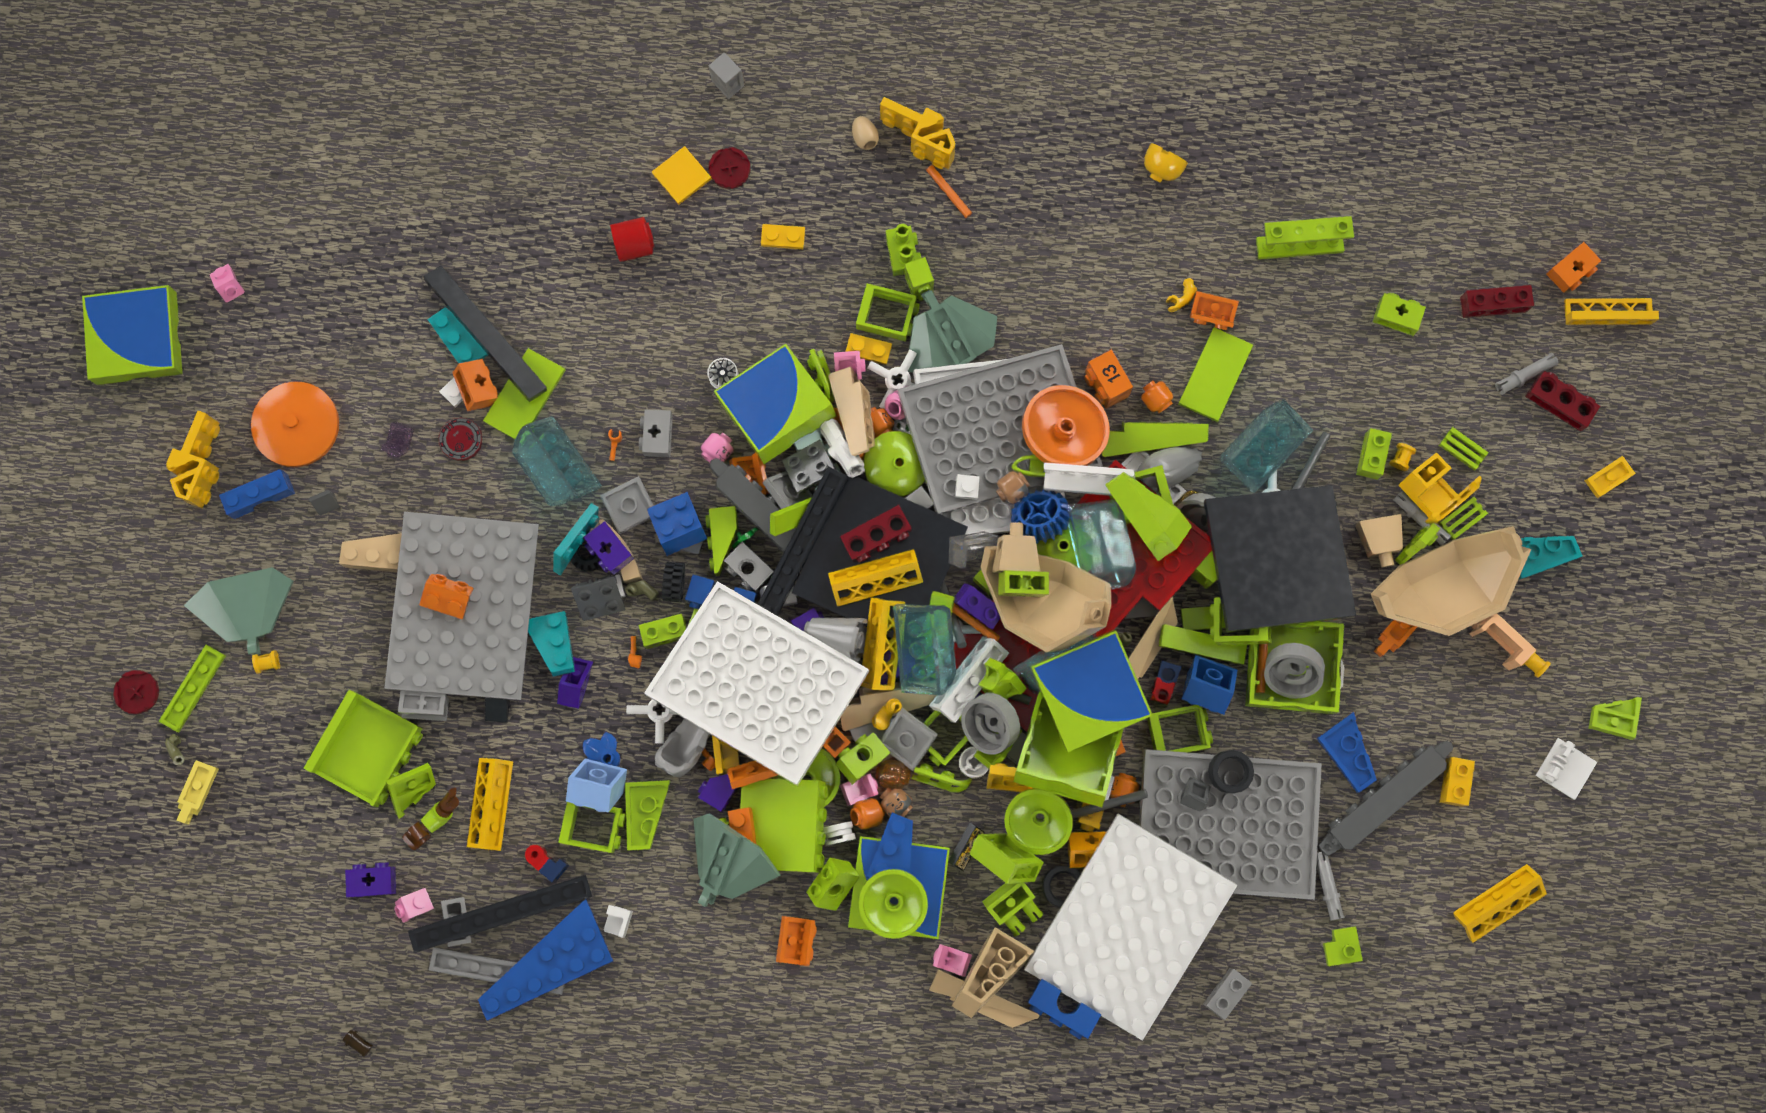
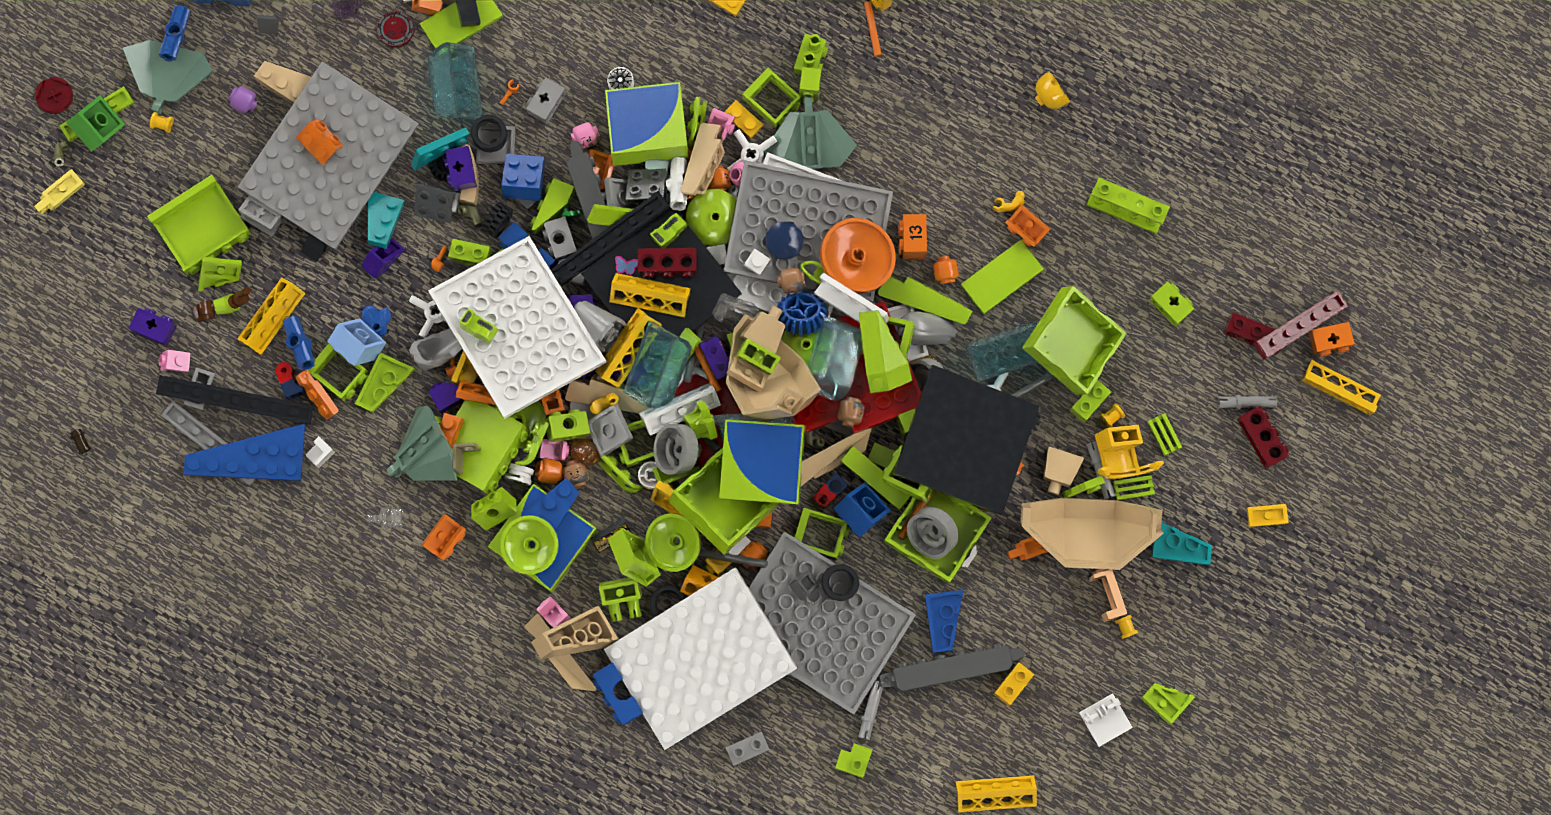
camera: 25 degrees right, 0 degrees up
(196, 699) = (95, 123): none -> bright green slope
(233, 572) = (173, 41): none -> blue piece
(340, 594) = (242, 99): none -> medium lavender head
(535, 818) = (298, 343): none -> blue piece
(583, 861) = (317, 394): none -> orange hinge
(617, 513) = (484, 120): none -> black tyre
(718, 704) = (478, 326): none -> lime leg
(726, 951) = (388, 518): none -> clear piece
(767, 848) = (458, 450): none -> dark tan bracket
(831, 562) = (624, 266): none -> medium blue sticker
(839, 798) = (532, 446): none -> lime piece
(860, 502) = (668, 231): none -> lime leg
(982, 450) = (784, 240): none -> dark blue dish
(1022, 607) = (747, 373): none -> tan plate
(1147, 590) = (850, 411): none -> medium nougat head
(1328, 400) = (1074, 340): none -> lime tile
(1539, 269) = (1300, 325): none -> tile

